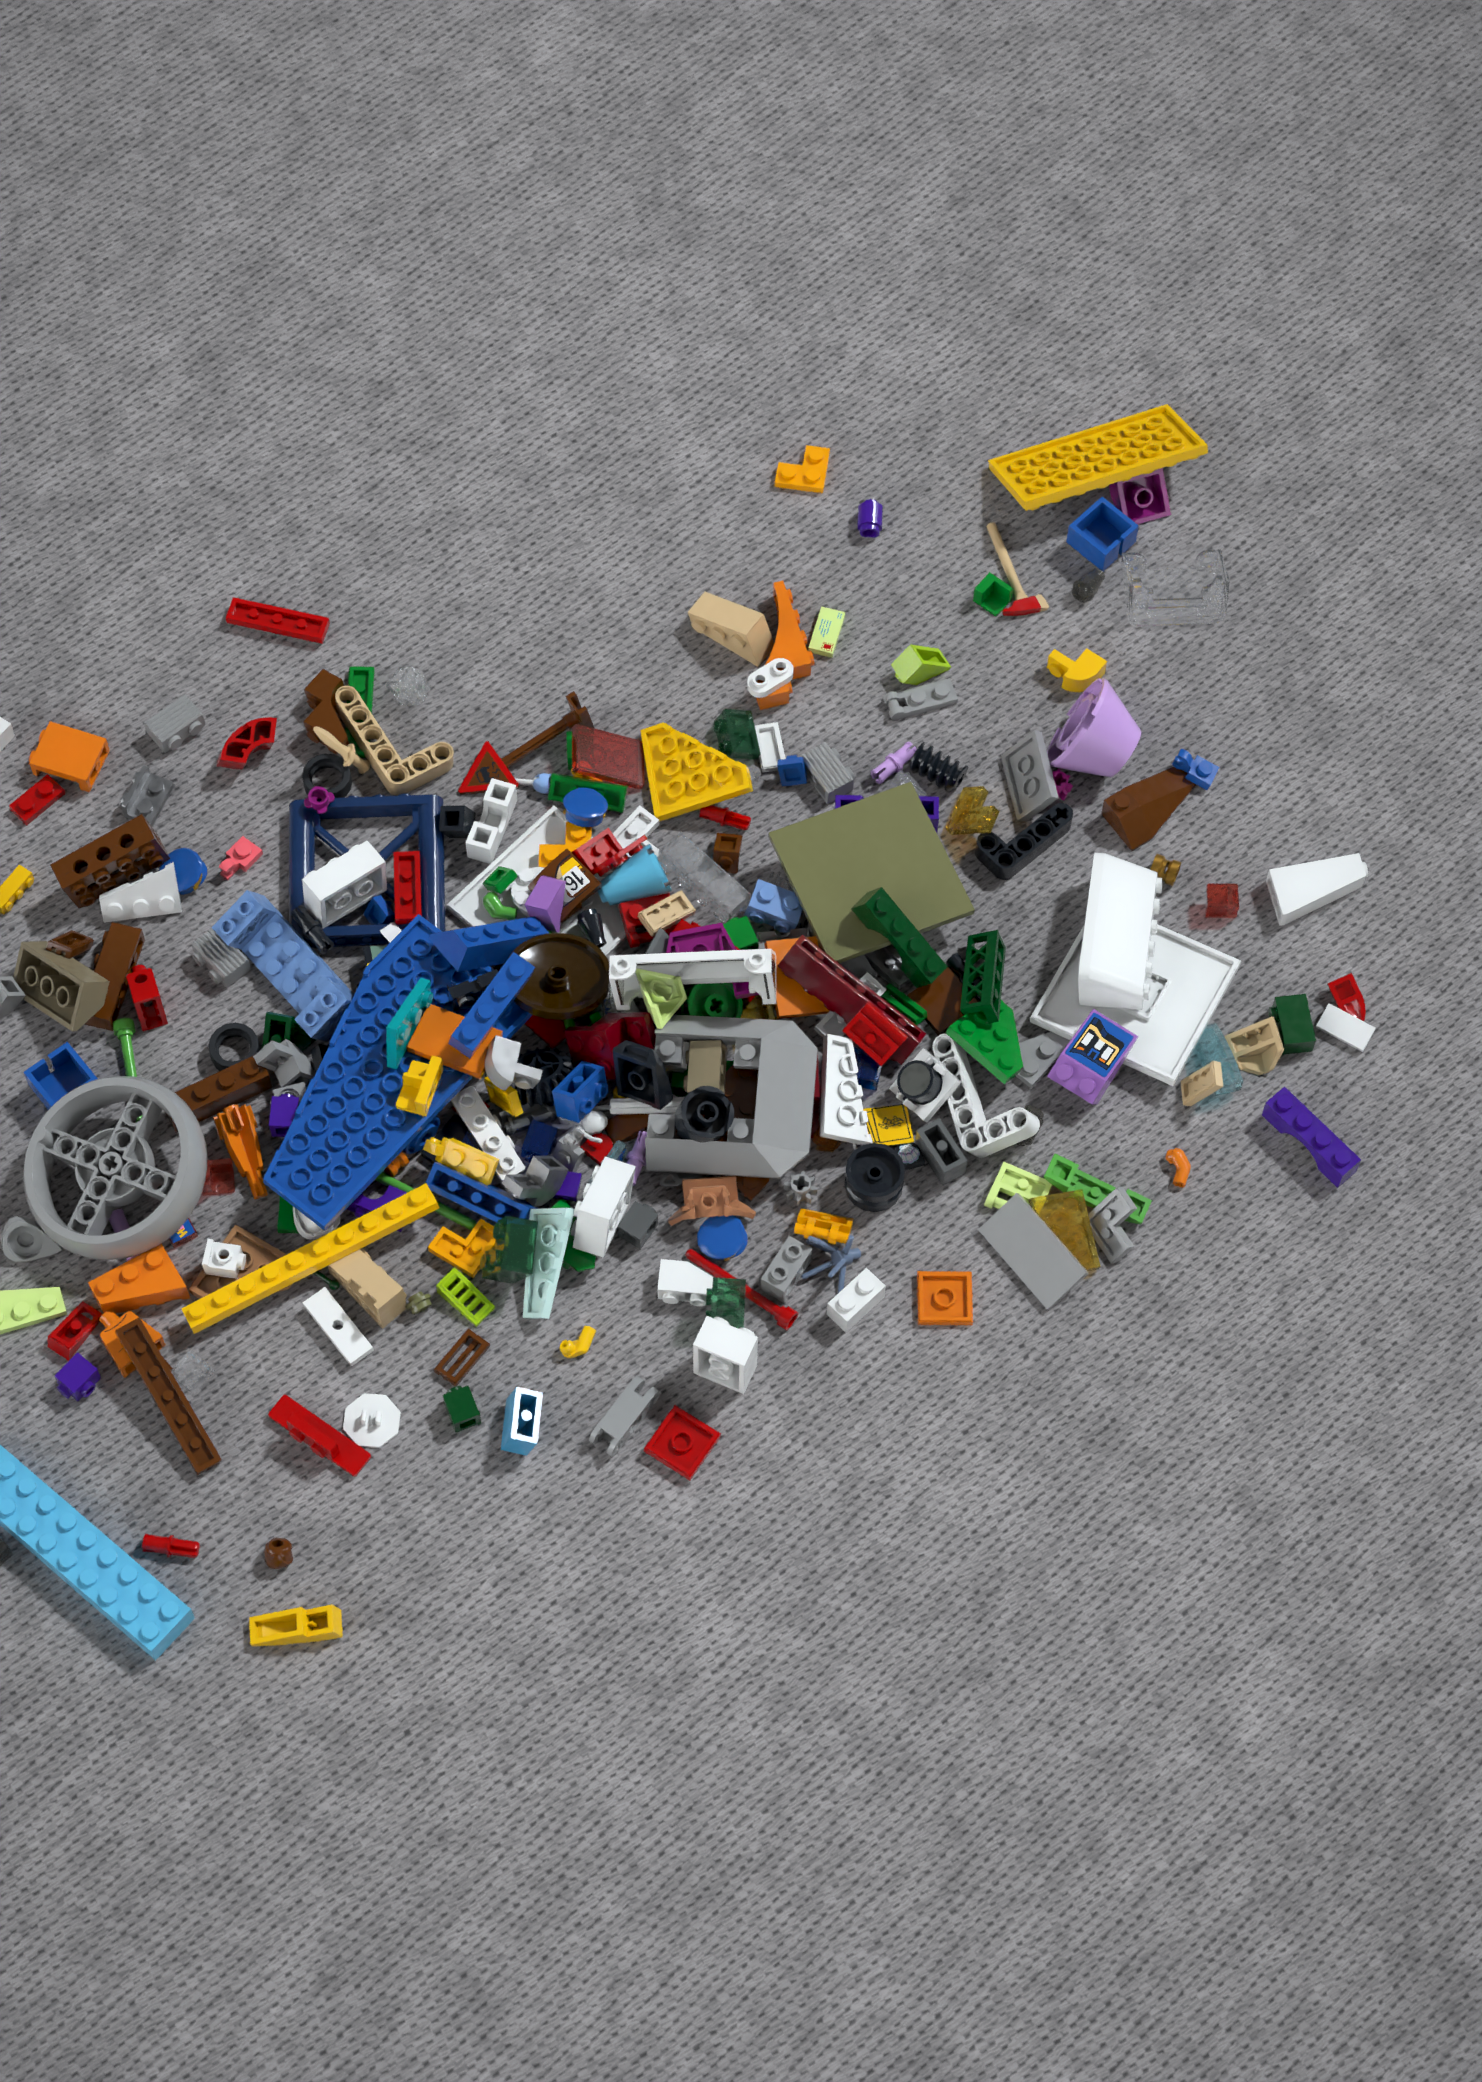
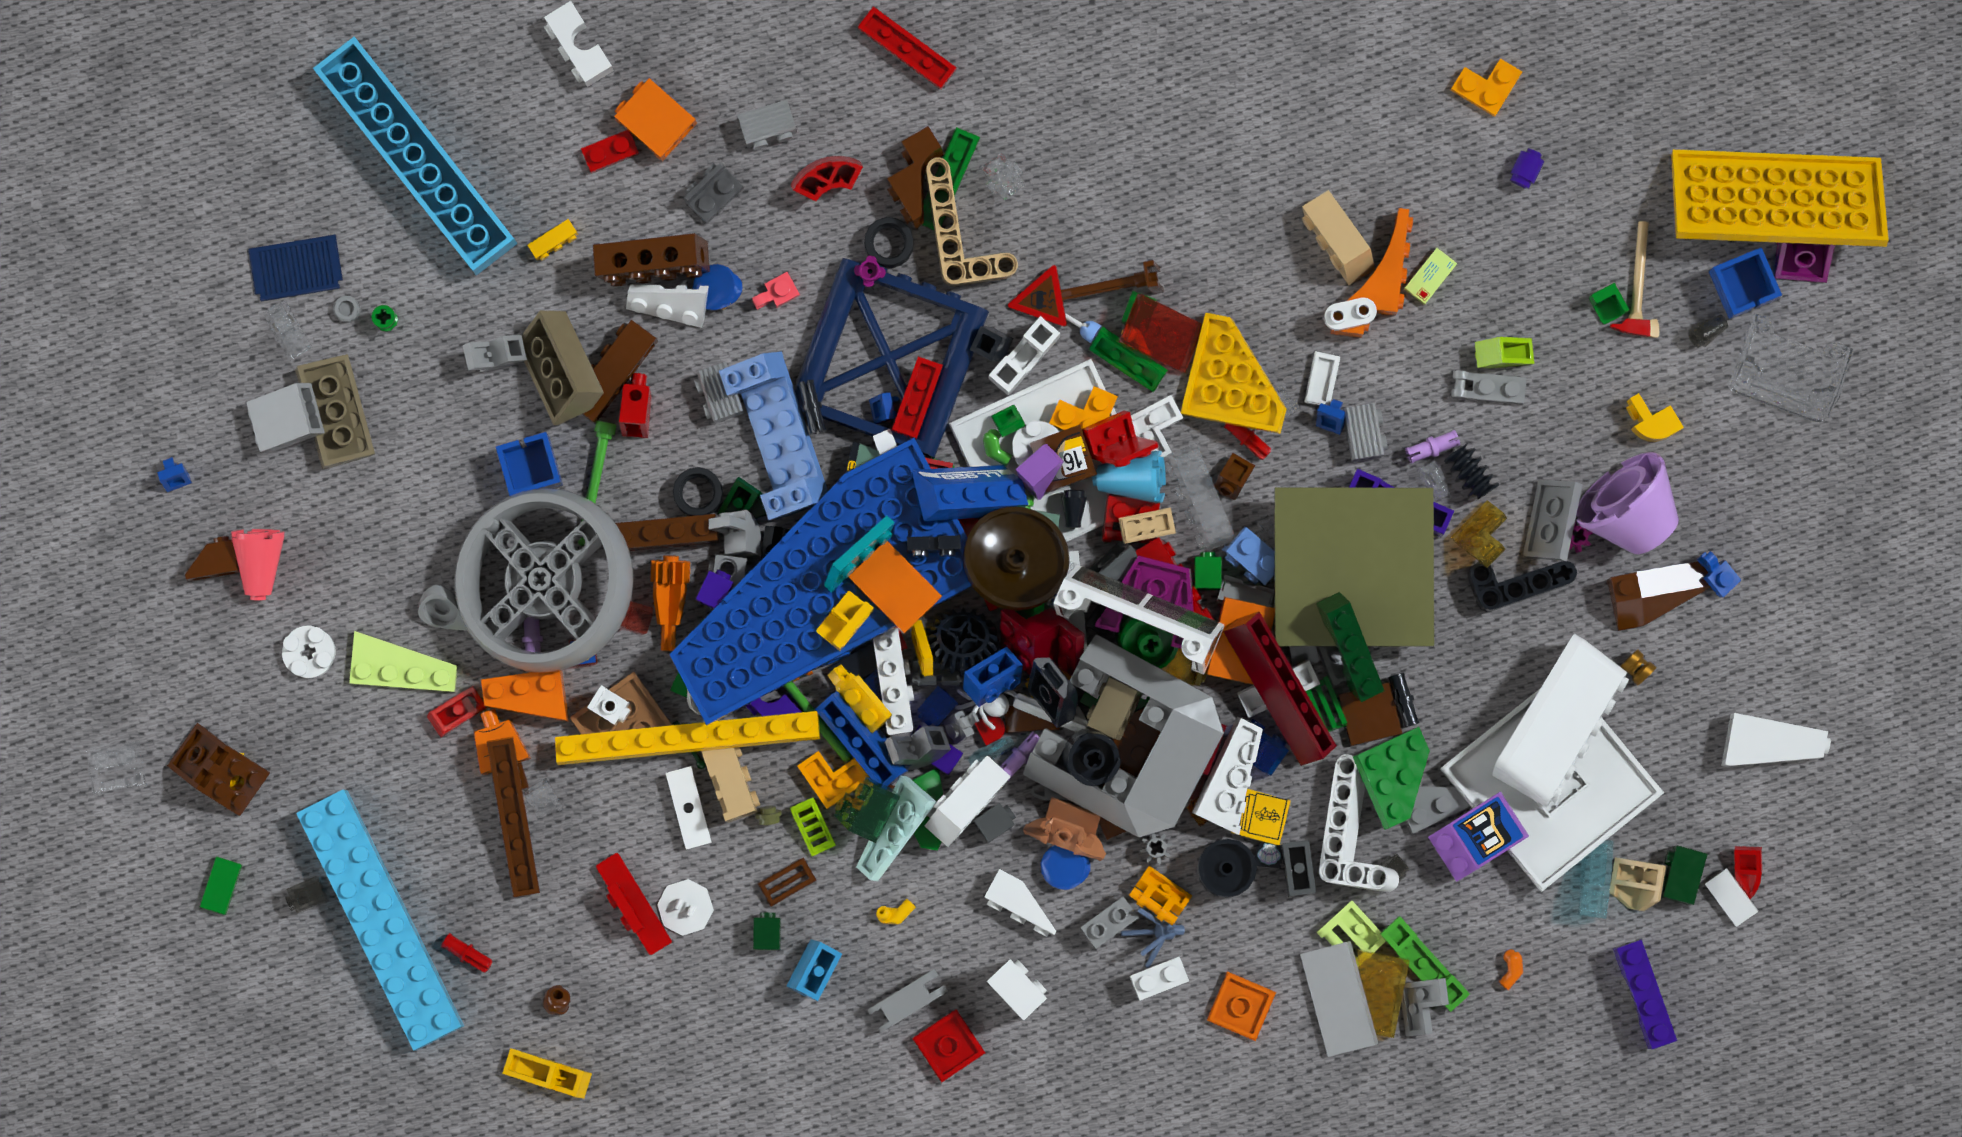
camera: 25 degrees right, 20 degrees up
(67, 944) = (575, 333): reddish brown tile -> none
(77, 1378) = (441, 762): dark purple brick -> none
(344, 884) = (857, 376): white brick -> none
(348, 753) = (916, 231): tan sword -> none
(491, 1005) = (939, 575): blue brick -> none
(503, 1067) = (926, 636): brick -> none
(584, 807) = (1117, 379): blue piece -> none
(661, 994) = (1100, 625): yellowish green slope -> none
(727, 1300) = (1038, 937): clear green bracket -> none
(737, 734) = (1294, 356): clear green bracket -> none
(784, 1316) = (1088, 963): red piece -> none
(874, 1033) = (1285, 733): red plate -> none
(922, 1083) = (1311, 796): piece -> none
(990, 971) = (1423, 715): dark green fence -> none
(1201, 1083) = (1567, 902): tan plate -> none
(1222, 901) = (1677, 722): clear red panel -> none

